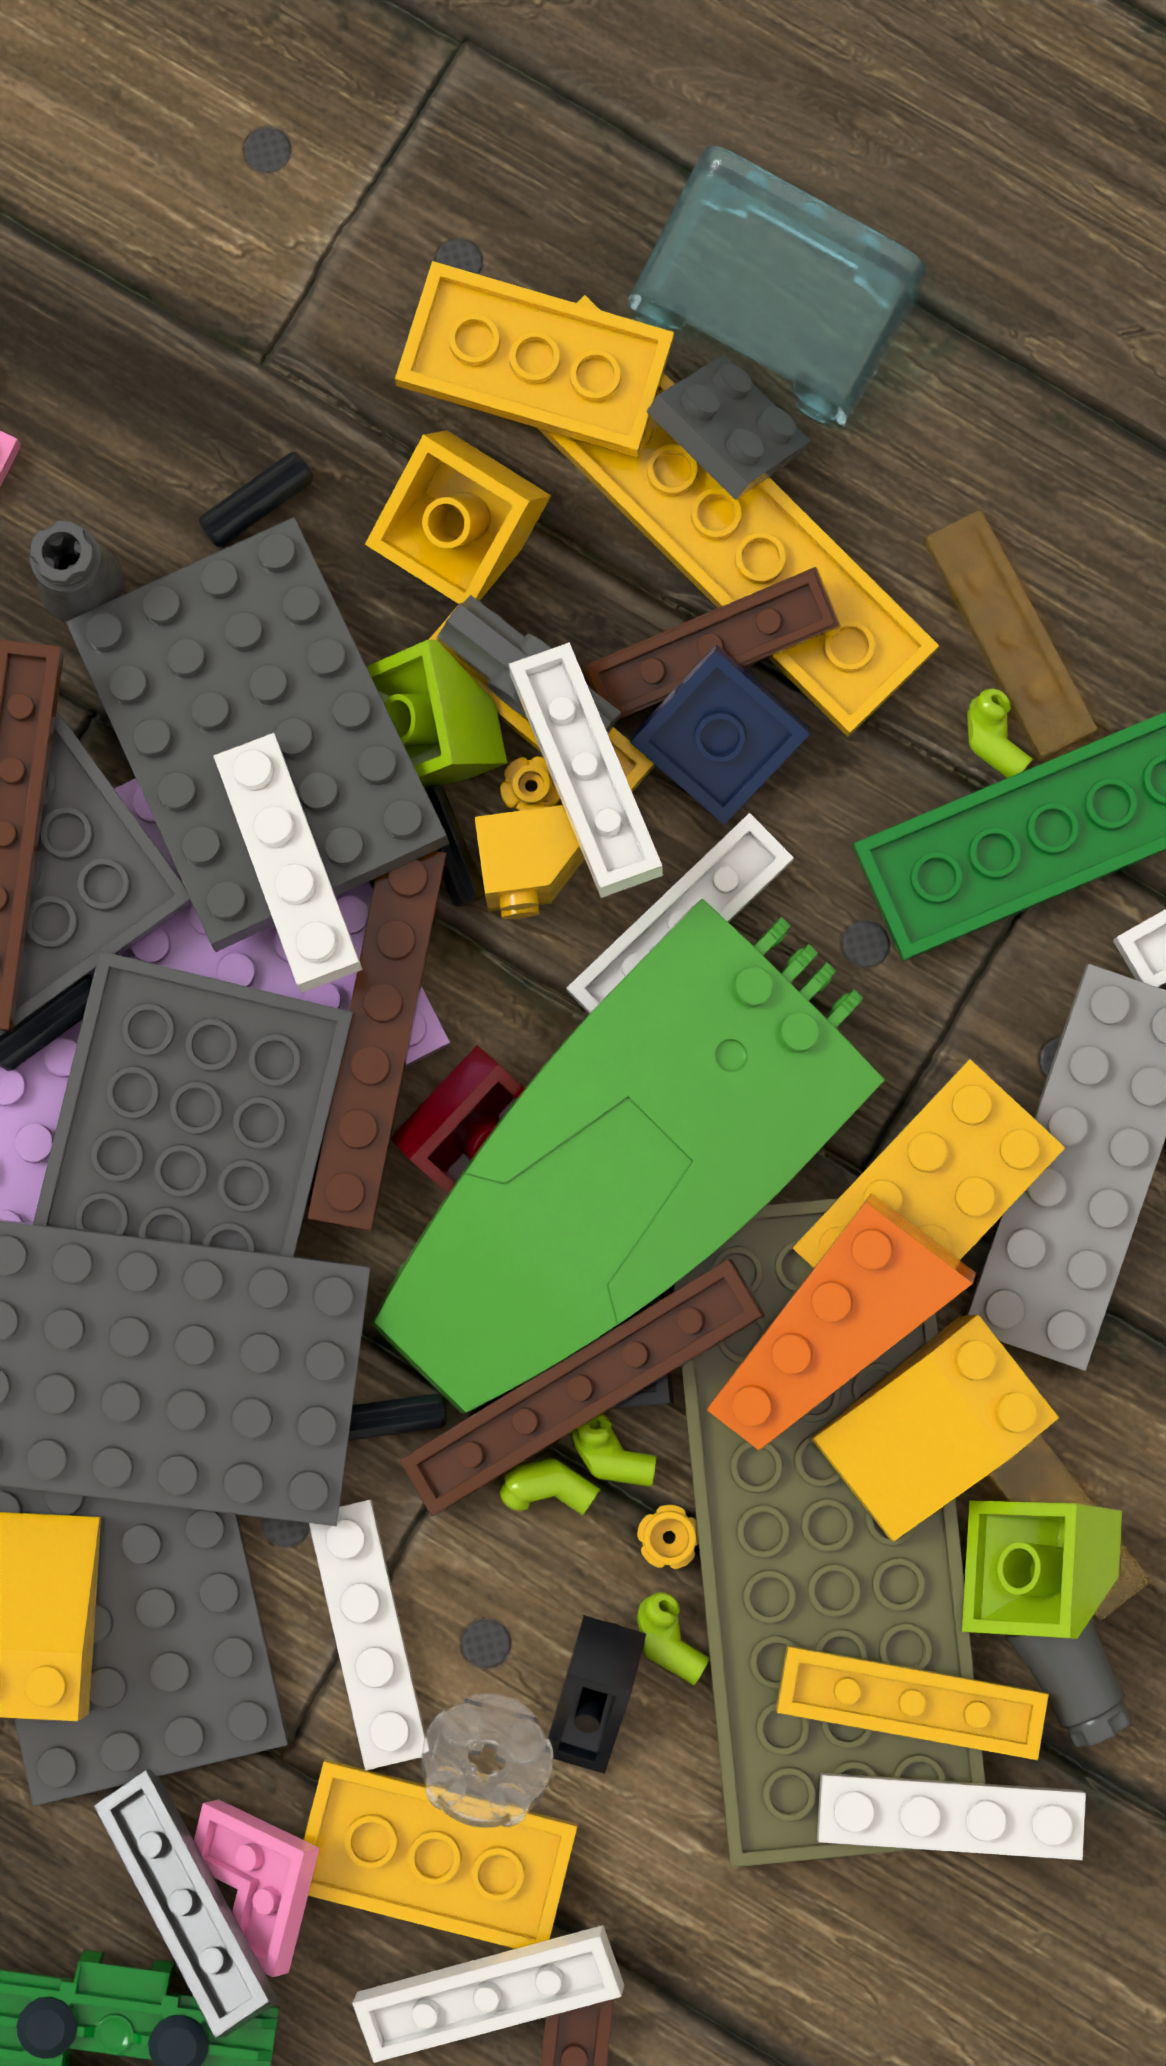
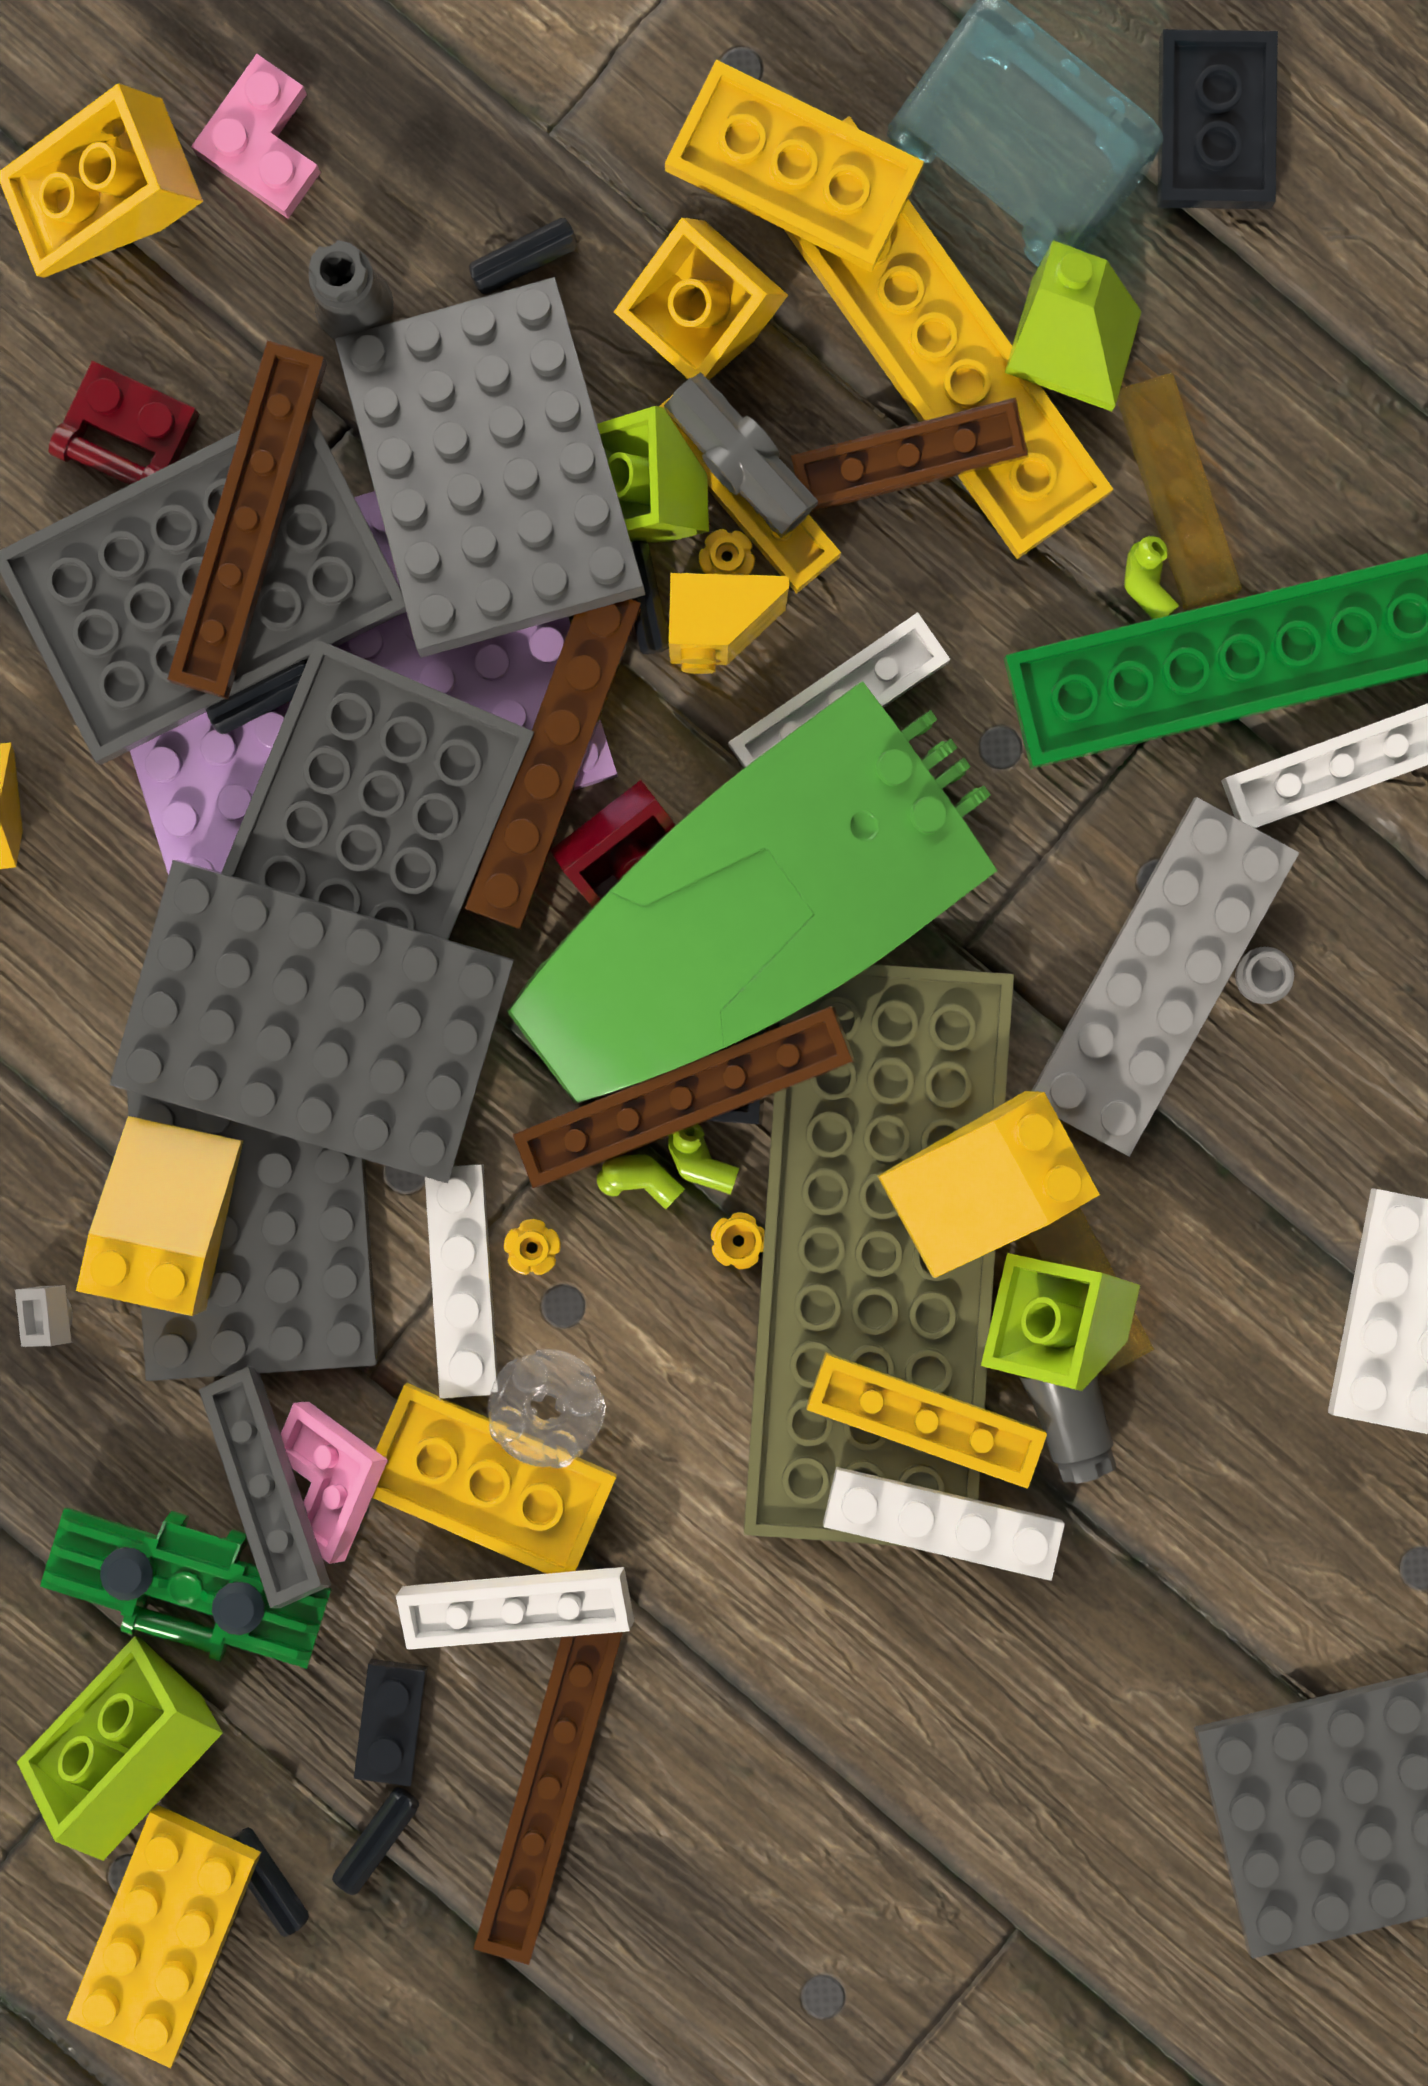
camera: 10 degrees right, 5 degrees up
(287, 863) = (496, 587): white plate -> none
(397, 1416) = (517, 1096): black axle -> none
(438, 1565) = (547, 1243): none -> yellow plate
(585, 770) = (777, 546): white plate -> none
(595, 1693) = (651, 1365): black slope -> none
(663, 1641) = (716, 1328): lime arm -> none
(720, 734) = (903, 537): dark blue plate -> none
(728, 426) = (959, 257): dark grey plate -> none
(849, 1310) = (929, 1070): orange wedge -> none
(868, 481) = (1075, 328): none -> lime slope
(948, 1167) = (1018, 981): yellow plate -> none
(981, 234) = (1217, 119): none -> black plate

